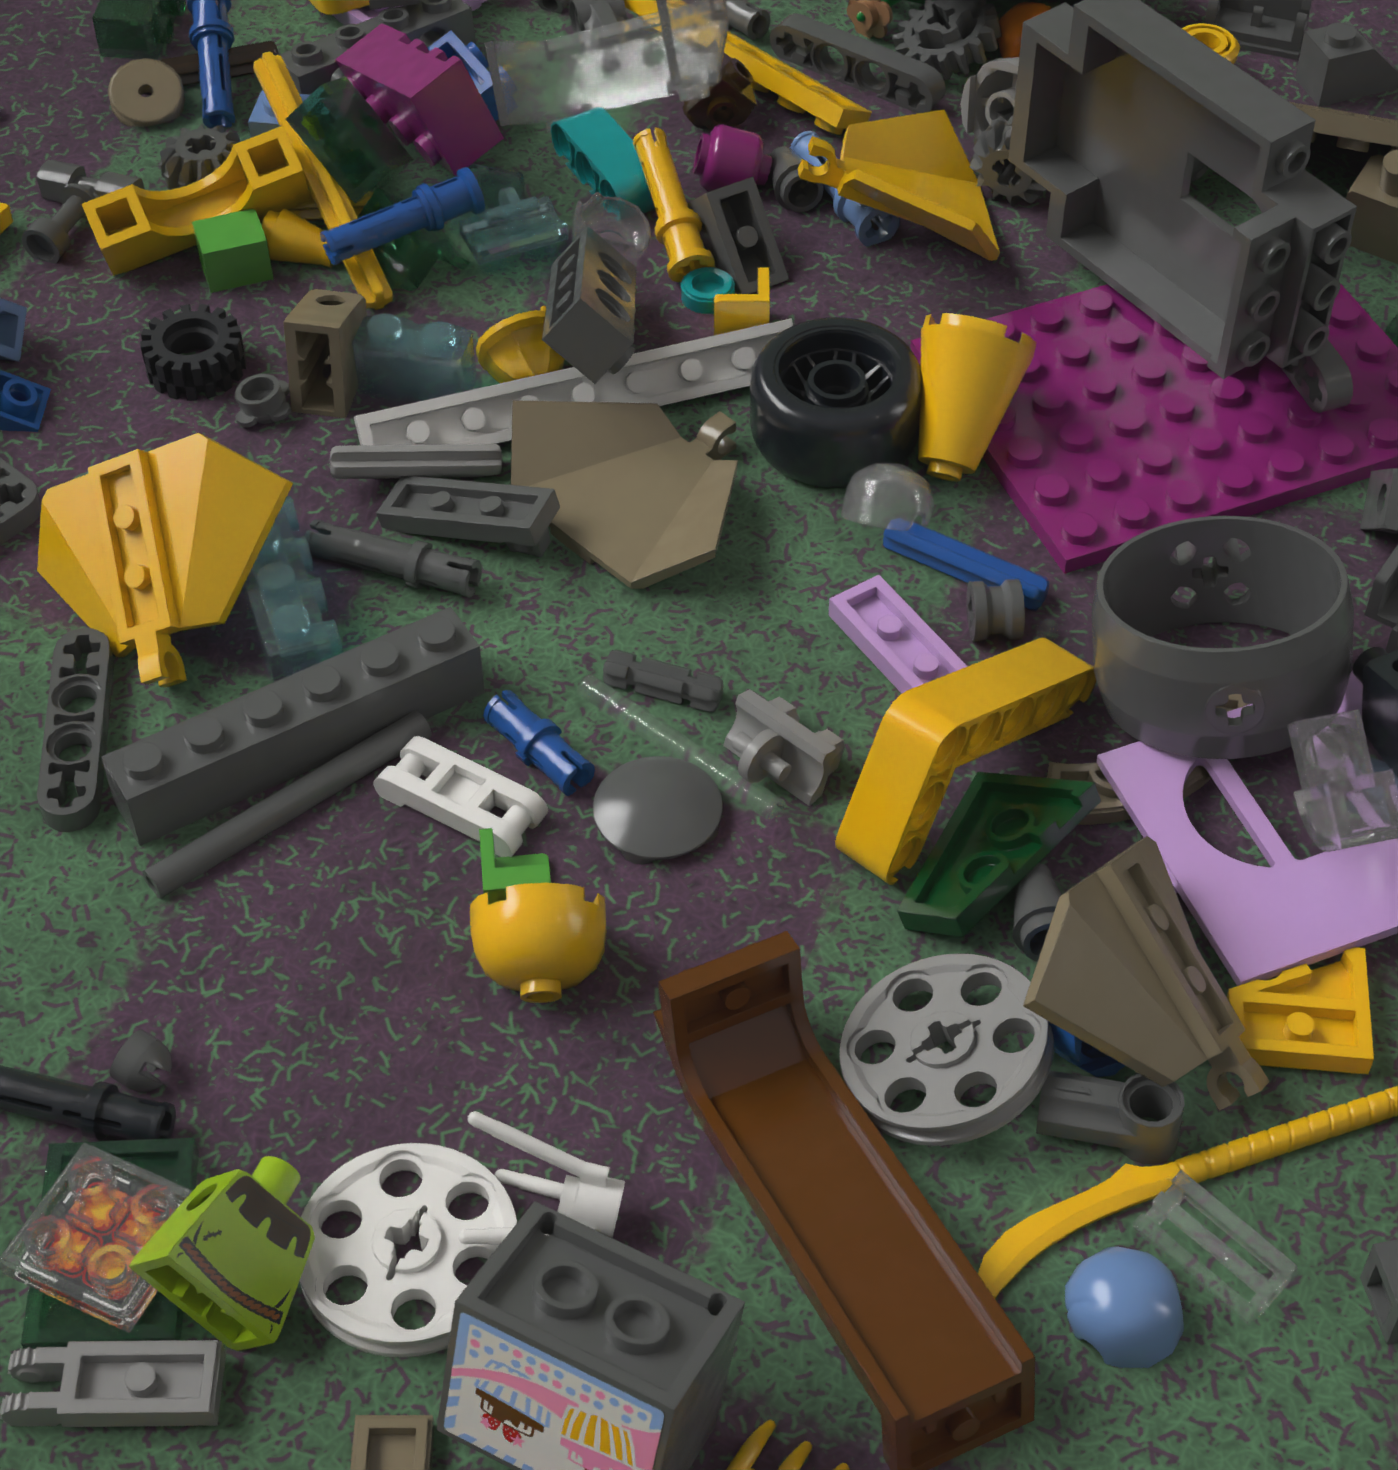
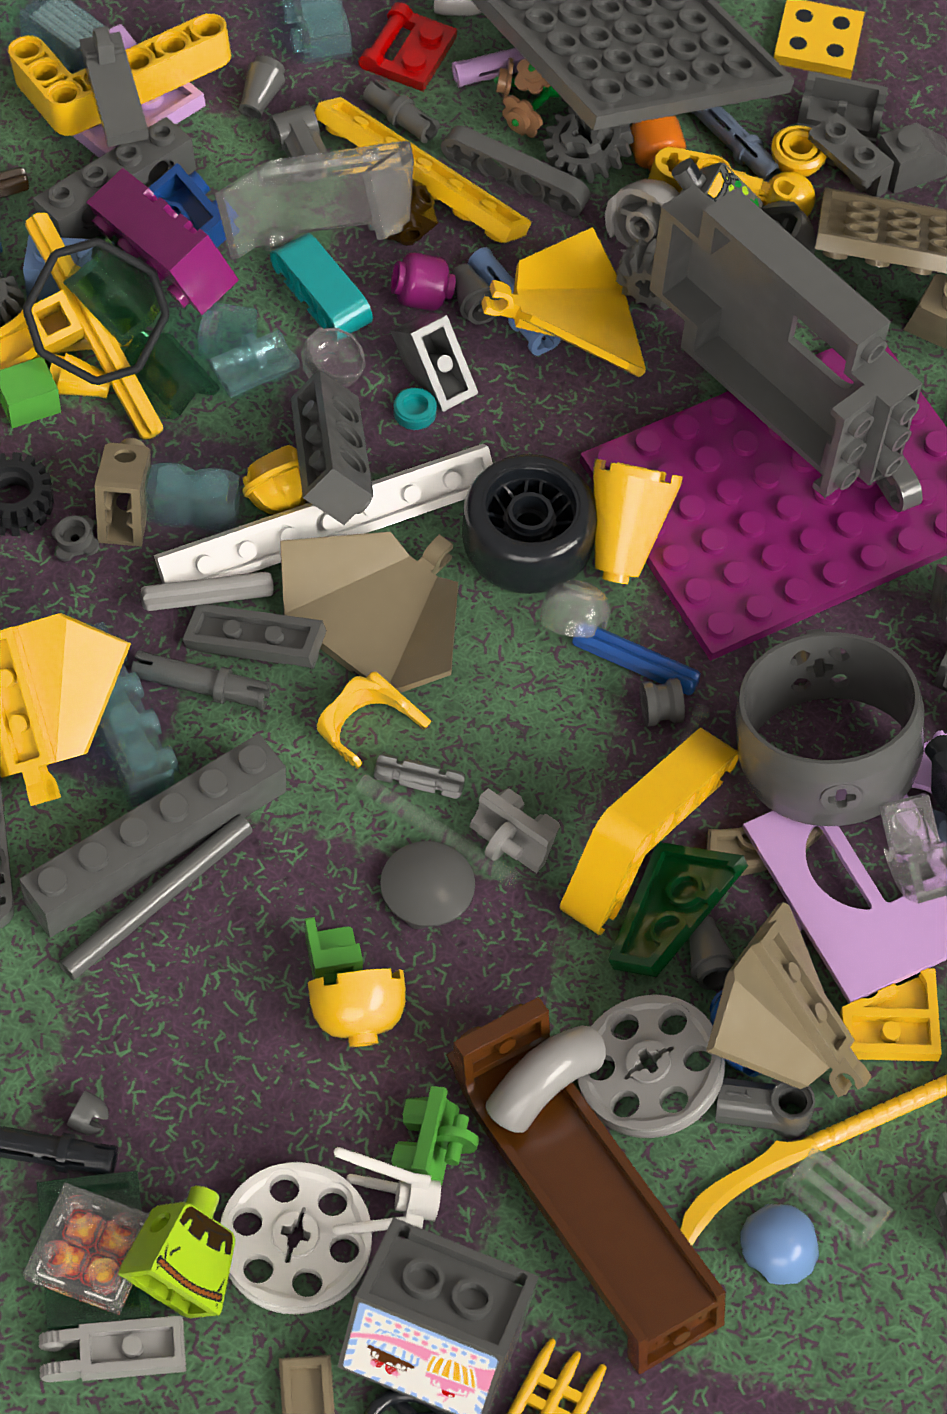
camera: 10 degrees left, 10 degrees up
(350, 83) = (74, 248): none -> black piece
(425, 209) = (185, 355): blue pin -> none
(461, 794) = (282, 883): white plate -> none
(538, 742) = (333, 835): blue pin -> none
(590, 582) = (357, 694): none -> yellow helmet
(632, 1122) = (441, 1135): none -> bright green hips
(677, 224) = (386, 352): yellow pin -> none
(743, 311) = (446, 435): yellow panel -> none
(788, 1041) = (543, 1075): none -> light grey cylinder
(892, 634) = (595, 736): lavender plate -> none
(1271, 56) = (853, 154): none -> dark grey bracket

